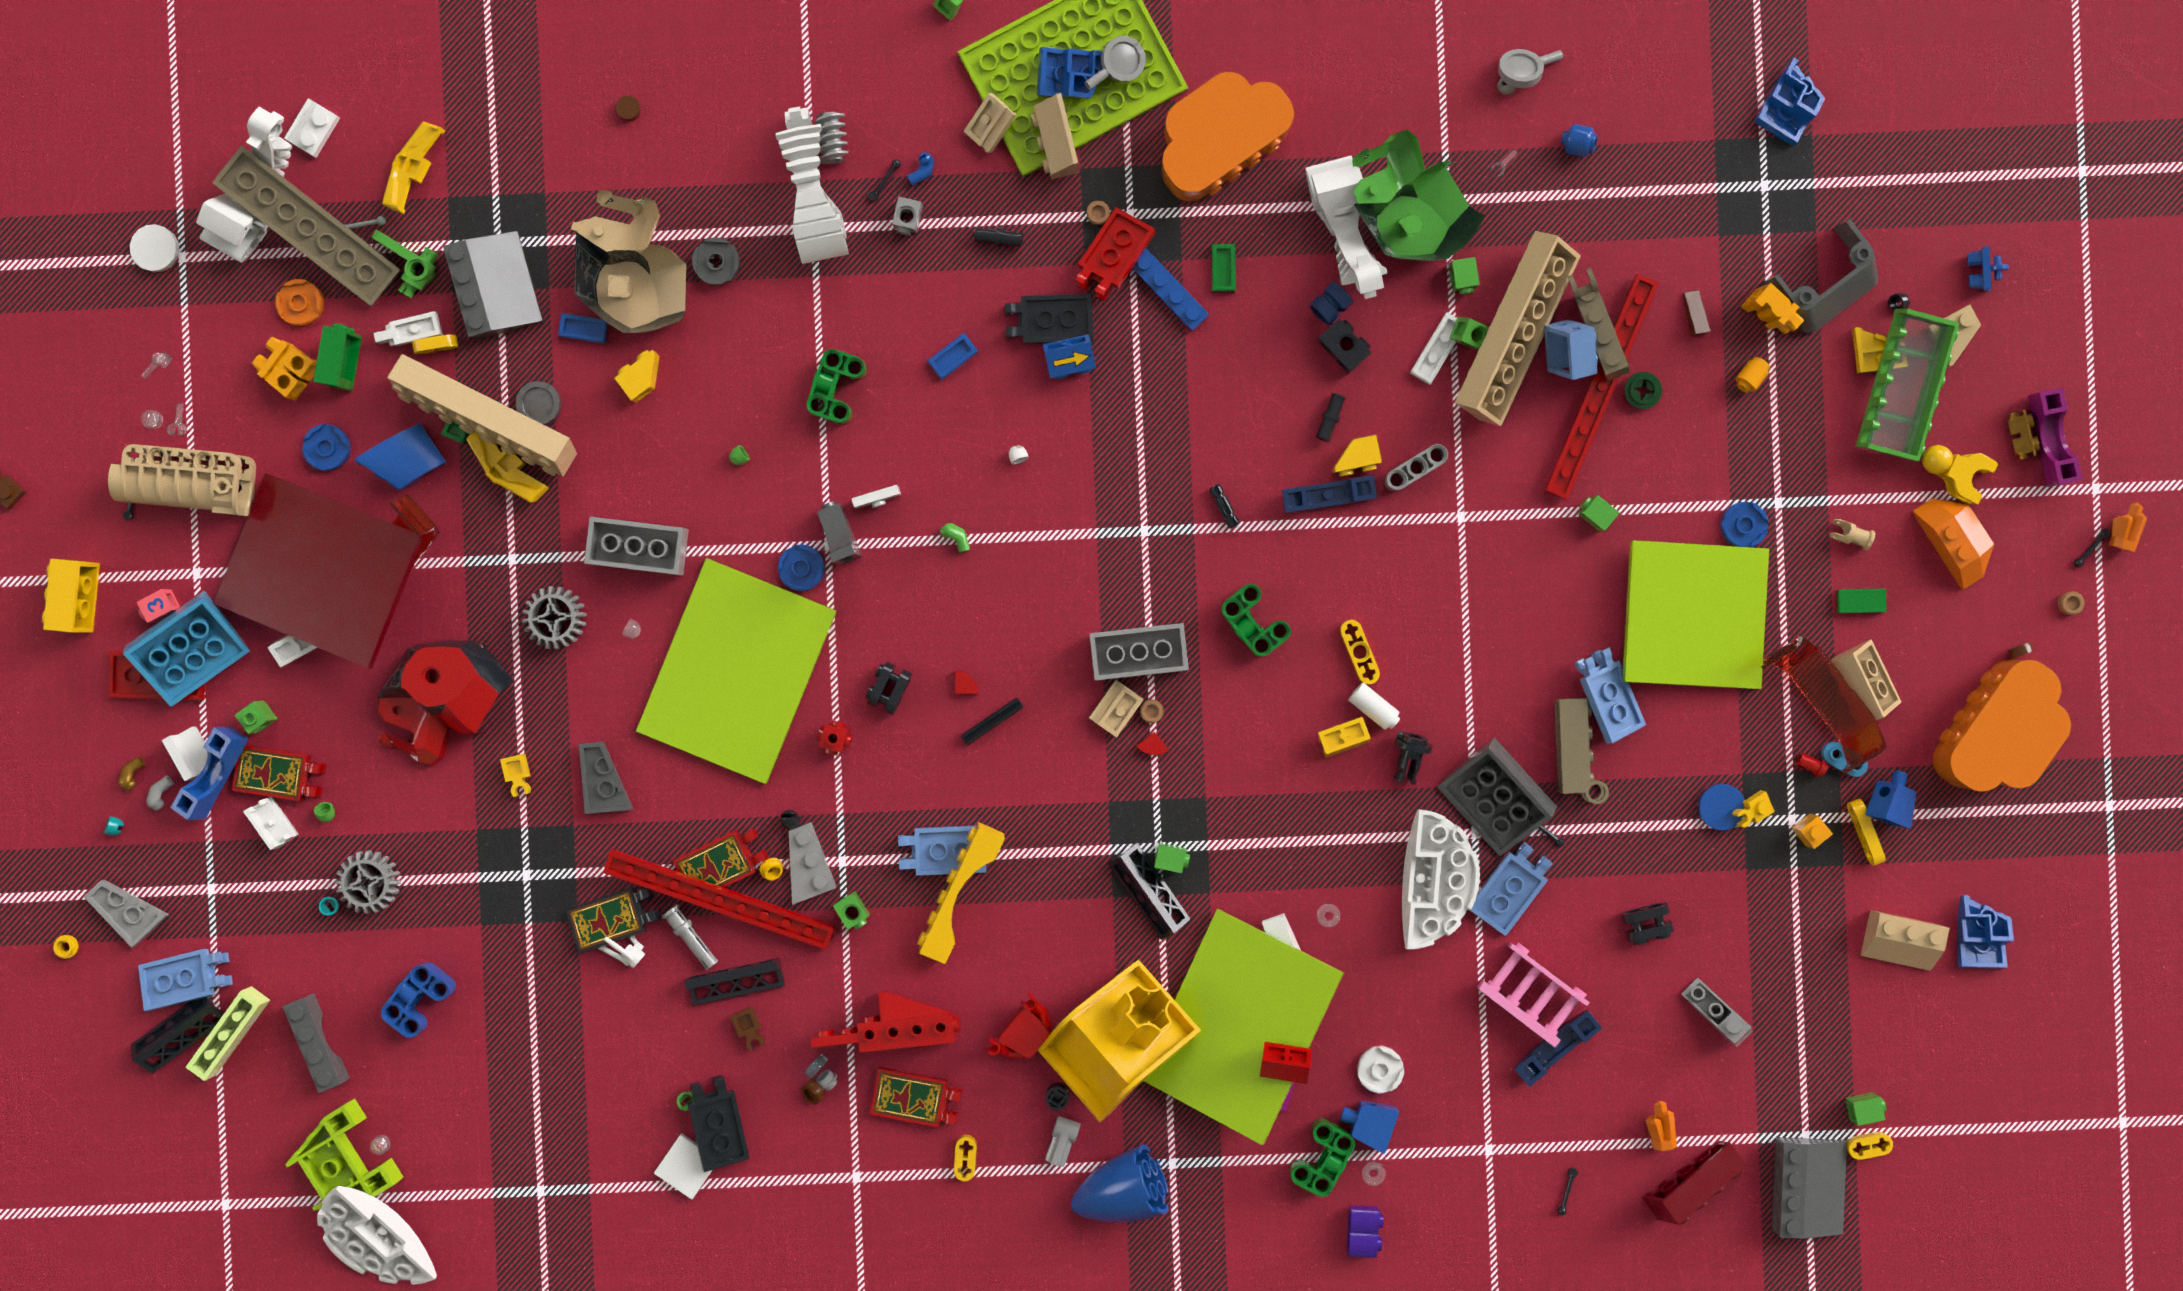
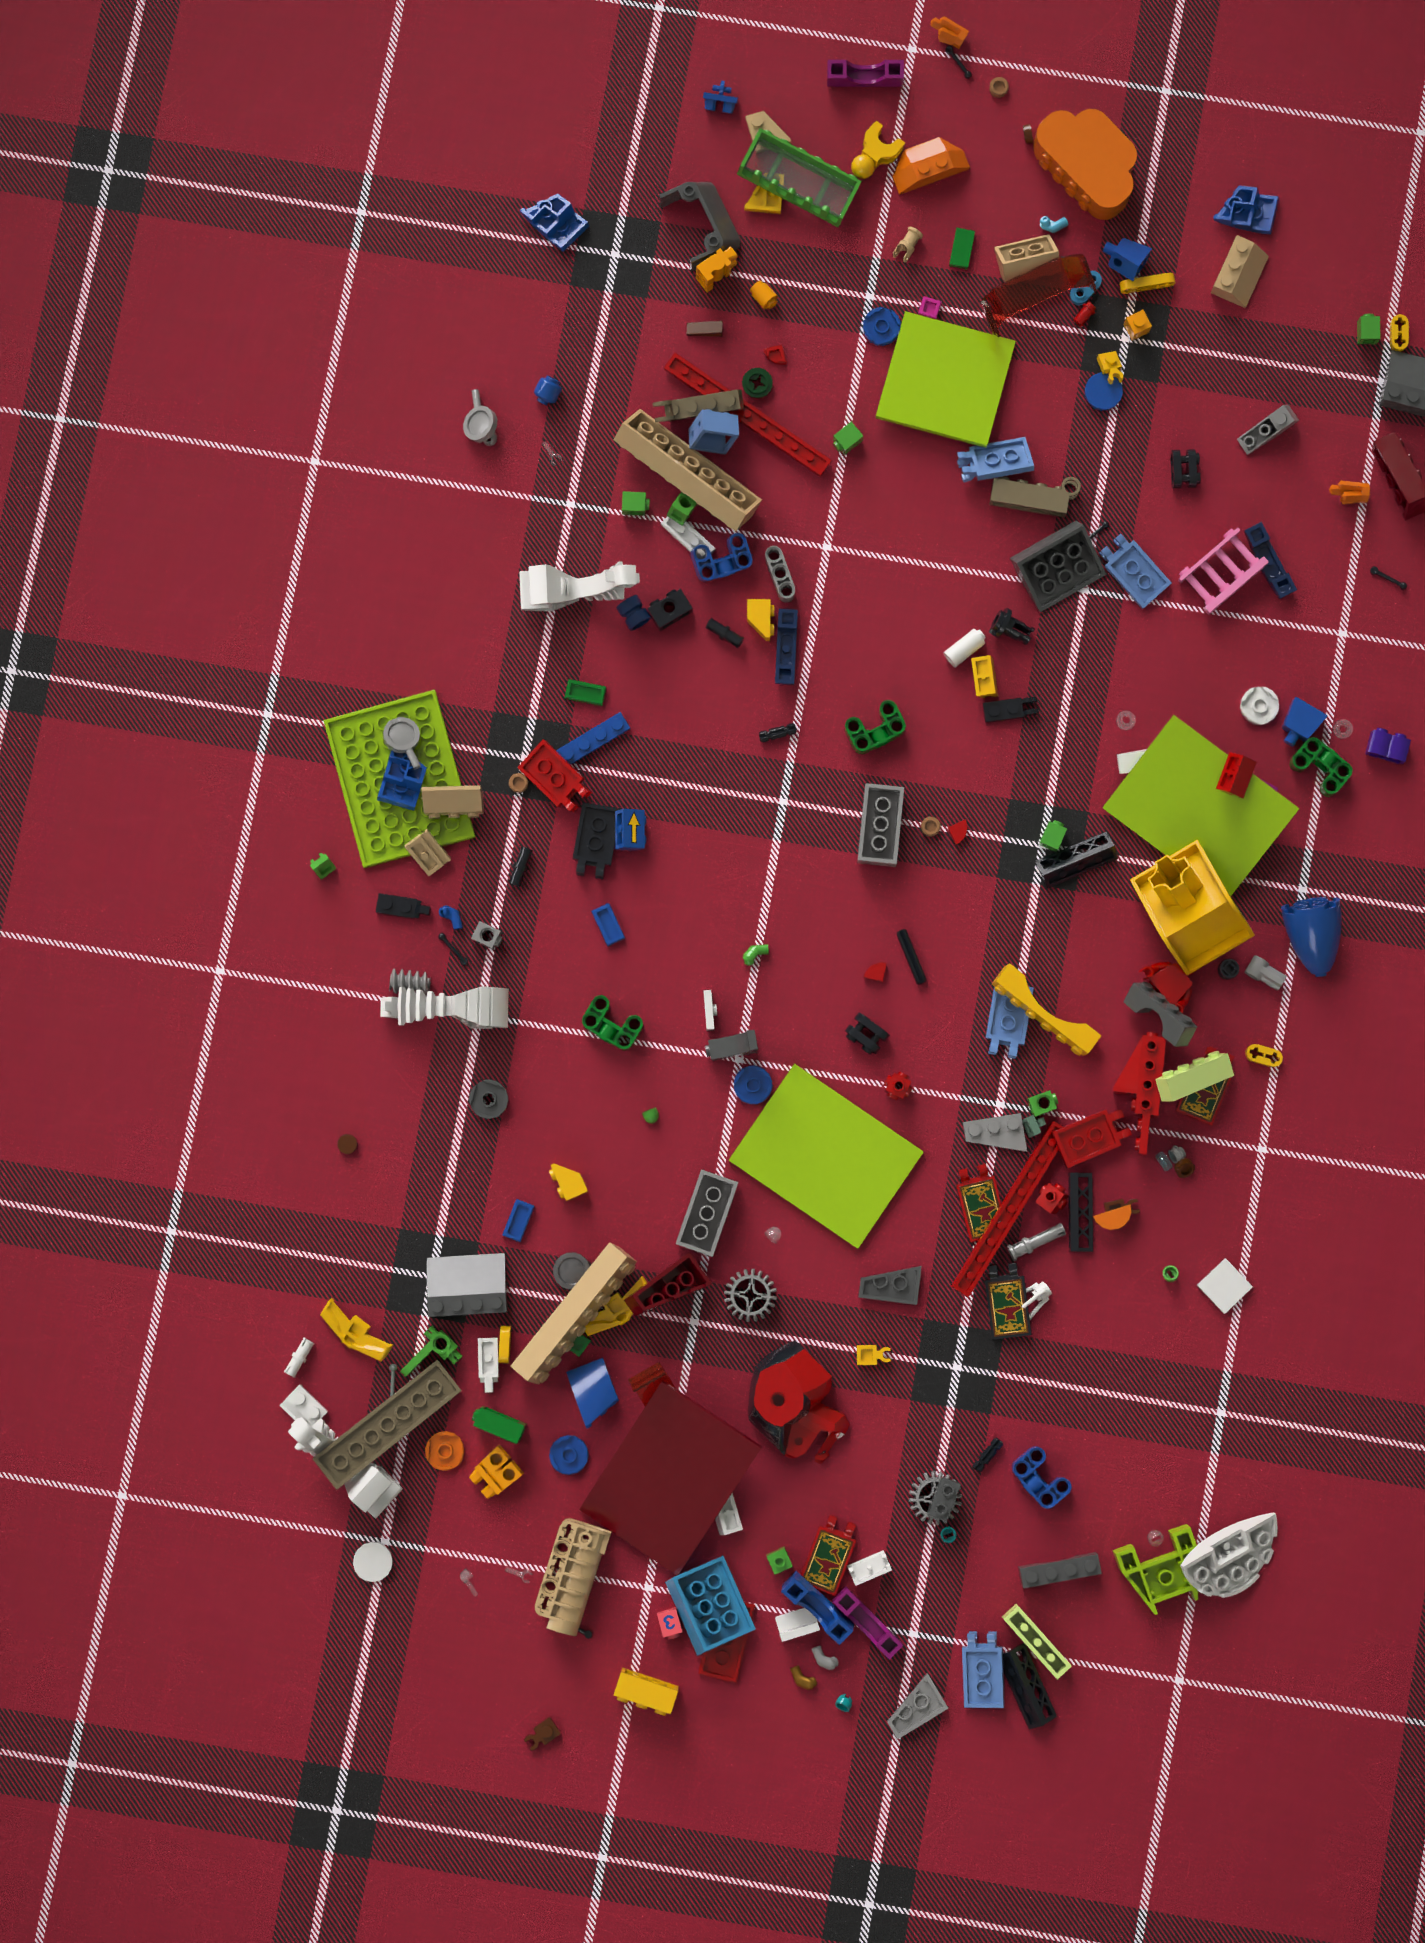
camera: 70 degrees left, 5 degrees down
(59, 946) = (936, 1772): yellow plate -> none
(155, 419) = (514, 1591): clear hinge -> none
(218, 818) = (867, 1622): none -> magenta arch
(324, 812) = (869, 1521): bright green hinge -> none
(361, 892) = (943, 1498): none -> dark grey hinge
(368, 108) = (299, 1357): none -> white pin
(431, 932) = (987, 1455): none -> black axle
(539, 519) = (673, 1283): none -> dark red wedge
(624, 275) = (484, 1173): tan piece -> none
(717, 1126) = (1195, 1252): black tile -> none
(734, 1023) = (1114, 1218): none -> orange tile
(742, 946) = (1052, 1197): none -> red brick
(771, 869) = (994, 1162): yellow plate -> none
(790, 823) = (959, 1139): black hinge -> none
(824, 905) = (1032, 1125): none -> sand green tile
(824, 975) = (1089, 1137): none -> red tile
(915, 1085) = (1194, 1077): none -> yellowish green brick
(921, 107) = (401, 906): none -> black hinge
(968, 1053) = (1176, 1027): none -> dark grey arch
(1017, 454) = (699, 889): white hinge -> none
(1116, 708) = (922, 854): tan plate -> none
(1221, 133) = (478, 669): orange brick -> none
(1311, 773) = (1008, 709): none -> black hinge
(1359, 670) = (933, 653): yellow beam -> none
(1411, 399) = (723, 566): none -> blue beam
(1413, 208) = (573, 531): bright green piece -> none
(1438, 879) = (1114, 627): white brick -> none
(1682, 405) = (775, 355): none -> red tile
(1779, 577) = (929, 307): none -> dark pink tile
(1893, 299) = (731, 174): black hinge -> none
(1911, 704) = (1053, 226): none -> medium azure arm
(2022, 425) = (849, 96): pearl gold hinge -> none

